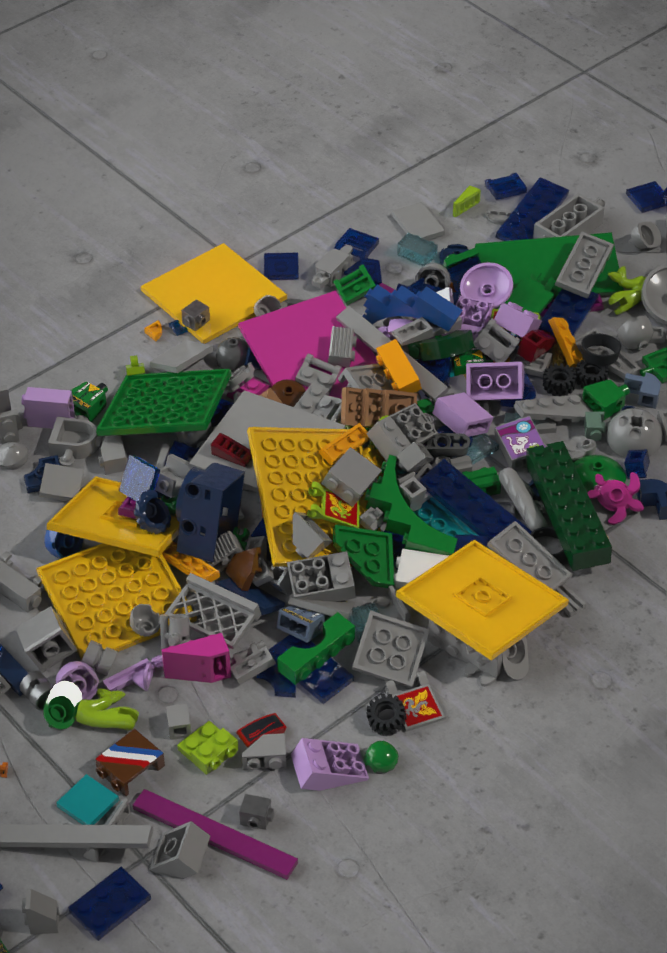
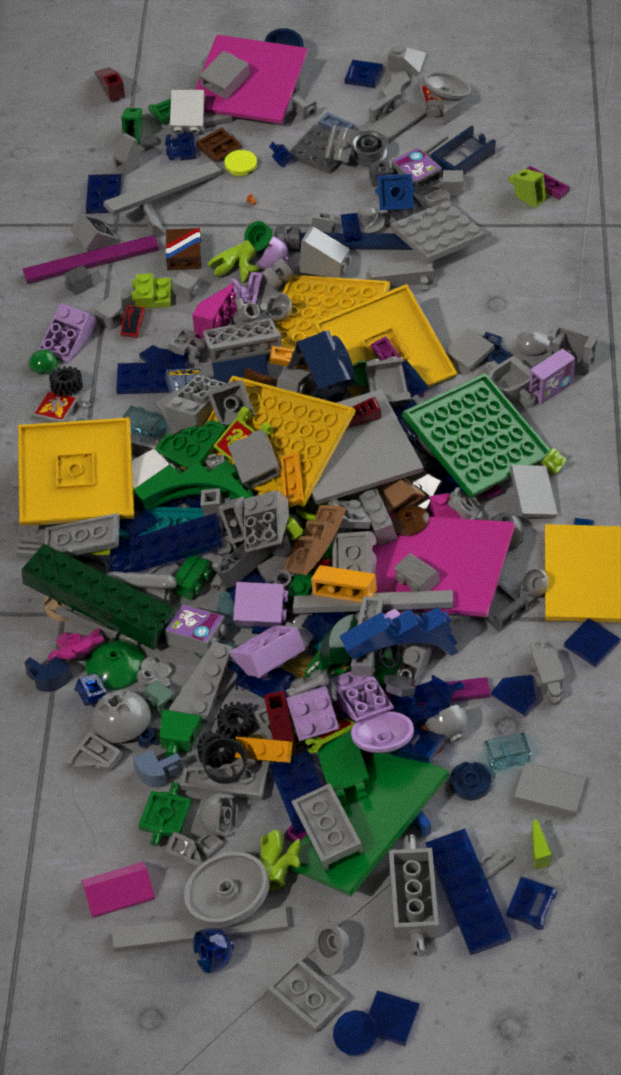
camera: 135 degrees right, 5 degrees up
(87, 801) = (182, 218): teal tile -> none
(89, 399) = (544, 411): green torso -> none
(138, 477) = (383, 353): clear blue tile -> none
(152, 513) = (357, 342): dark blue hair -> none
(154, 330) = (593, 506): light orange tile -> none
(195, 315) = (573, 527): flat silver brick -> none
(299, 663) = (151, 358): green arch -> none
(308, 374) = (412, 543): light grey plate -> none
(357, 288) = (498, 659): green plate -> none
(358, 240) = (564, 720): clear blue plate -> none
(390, 649) = (108, 404): light grey plate -> none
(453, 260) = (444, 750): green plate -> none

